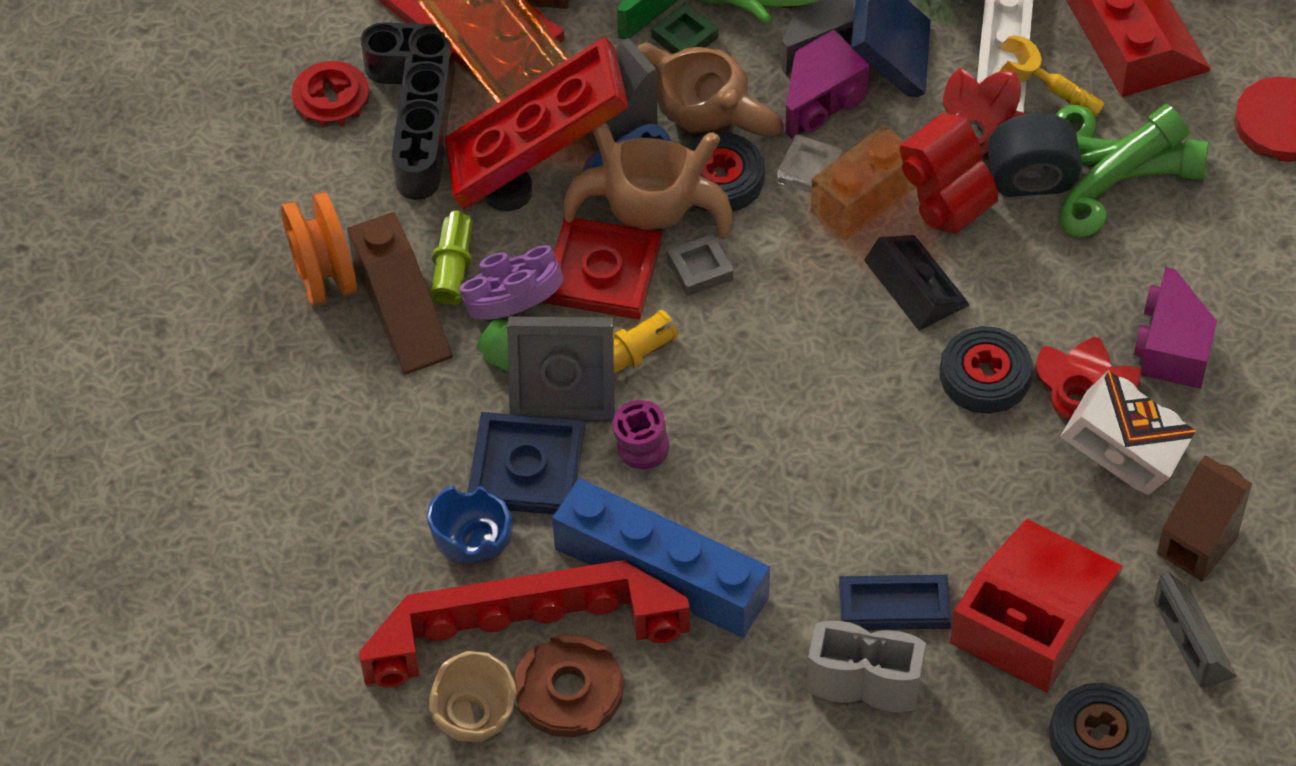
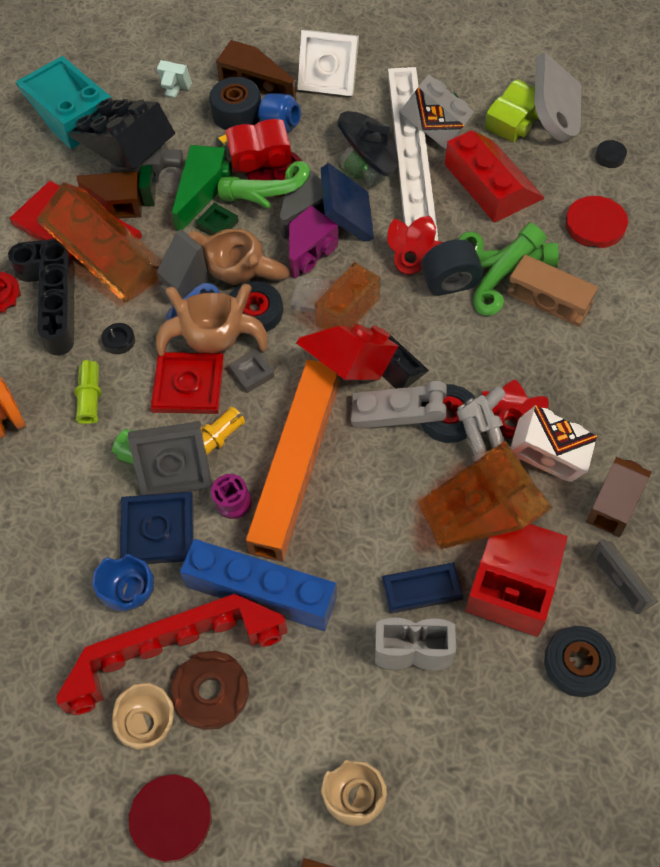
camera: 10 degrees left, 5 degrees up
(398, 292) = (54, 422): reddish brown slope -> none
(512, 284) = (129, 405): medium lavender tile -> none
(535, 122) = (129, 293): red tile -> none
(742, 396) = (293, 462): none -> orange brick
(855, 254) = (351, 351): none -> red slope
(911, 346) = (399, 406): none -> light grey plate
(948, 173) = (401, 287): red brick -> none
(1009, 492) = (484, 500): none -> clear orange slope
(1027, 380) = (479, 417): none -> light grey piece
(1030, 62) = (436, 209): yellow piece -> none
(1179, 335) = (567, 370): magenta slope -> none
(1184, 213) = (552, 290): none -> medium nougat piece

